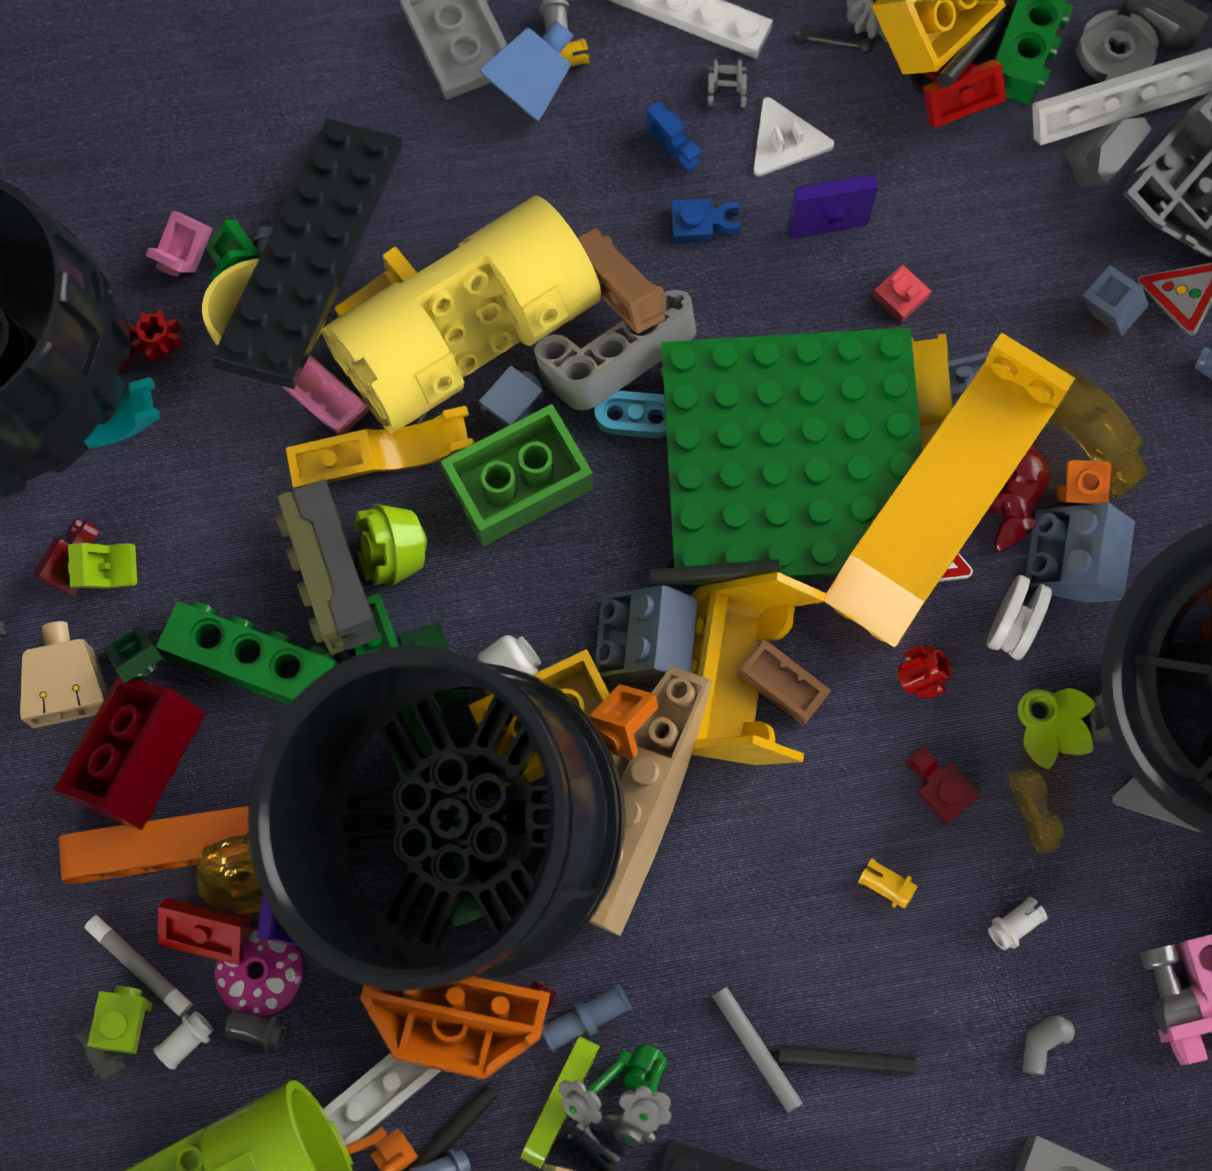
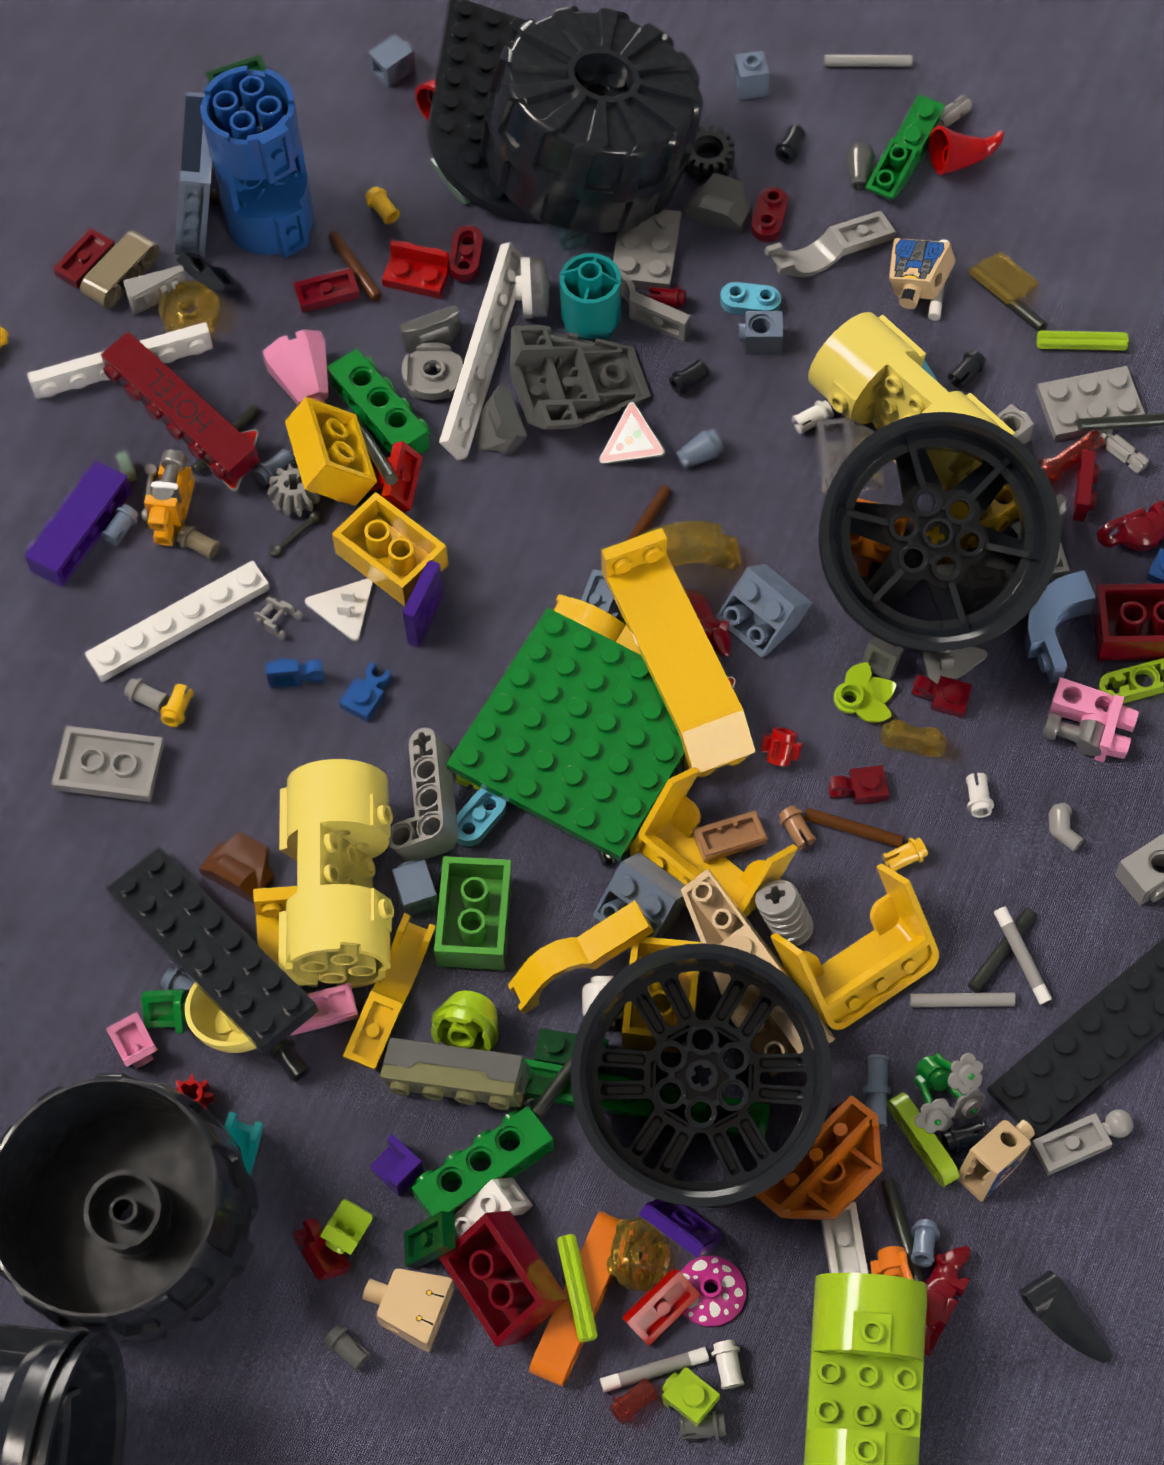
camera: 55 degrees left, 10 degrees down
(88, 964) = (633, 1401): none -> clear red pin
(161, 833) = (577, 1288): none -> lime axle
(202, 575) = (397, 1166): none -> dark purple panel
(213, 692) = (495, 1196): none -> white bracket
(253, 402) = (290, 1060): none -> black pin
(256, 1030) = (752, 1311): dark grey pin -> none
(427, 224) = (239, 866): none -> reddish brown slope
(531, 68) = (180, 728): medium blue torso -> none
(538, 610) = (585, 951): none -> yellow piece
(622, 284) = (397, 760): medium nougat container -> none
(622, 717) = (697, 929): orange bracket -> none
(713, 572) = (634, 825): pearl dark grey bar -> none
(723, 792) = (784, 911): none -> light grey piece
(724, 923) = (874, 966): none -> yellow windscreen
(842, 746) = (796, 826): none -> medium nougat pin
(851, 1088) = (1023, 955): none -> light grey bar
(877, 131) = (388, 547): none -> yellow brick
(885, 808) = (853, 827): none -> reddish brown bar
(901, 293) = (509, 604): coral tile -> none
(1018, 624) = (784, 668): white head -> none
(1085, 482) = (722, 574): orange bracket -> none
(1113, 367) = (651, 512): none -> reddish brown bar
(1115, 300) = (610, 481): sand blue brick -> none
(1117, 817) = (948, 695): none -> dark red plate

